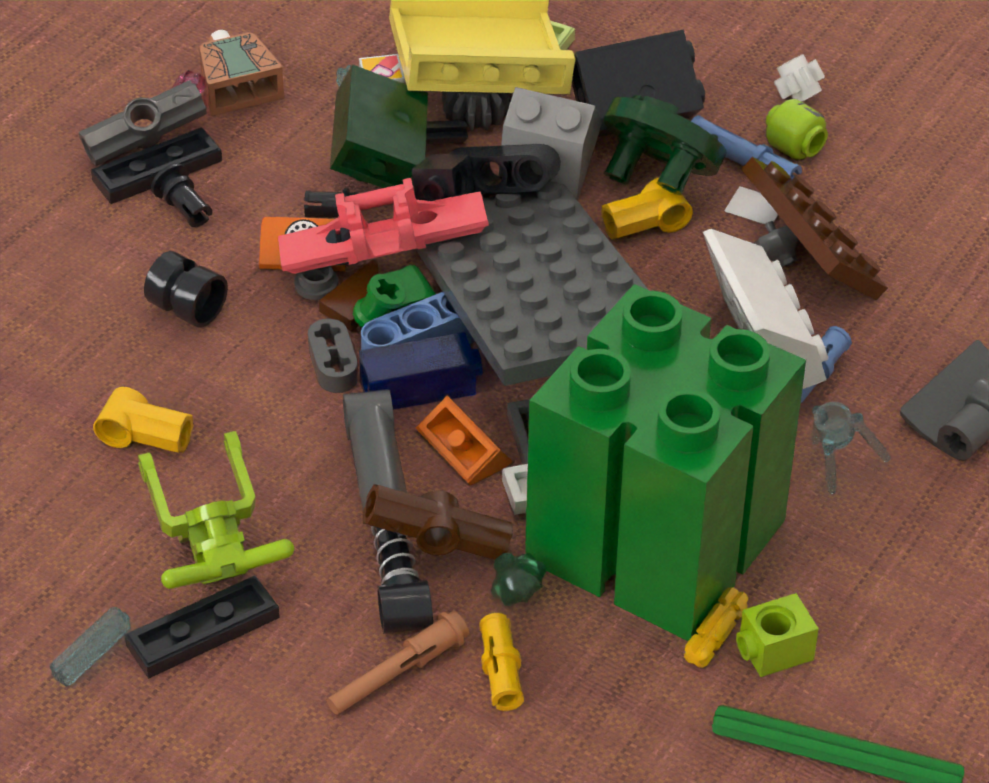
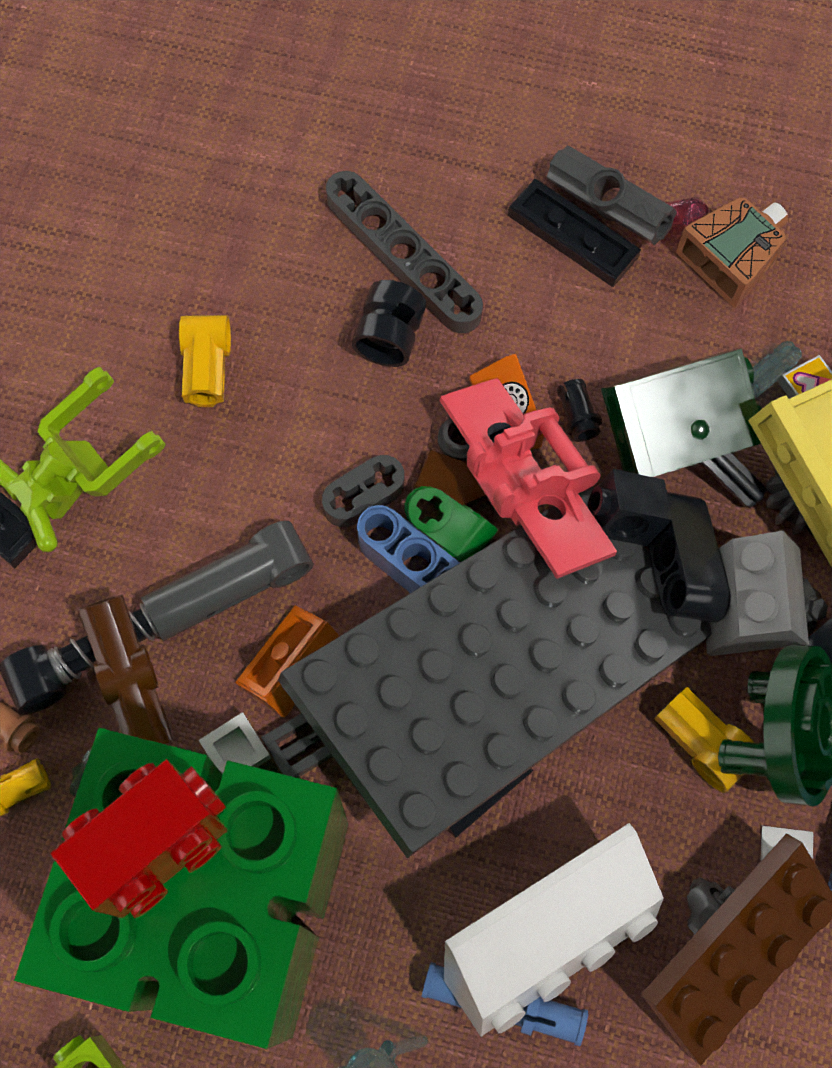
camera: 70 degrees right, 25 degrees up
(87, 271) = (410, 269): none -> dark grey beam
(178, 190) = (532, 266): black pin -> none
(422, 370) = (350, 570): clear blue brick -> none
(647, 327) = (142, 840): none -> red brick
(715, 627) = (63, 1004): yellow axle -> none

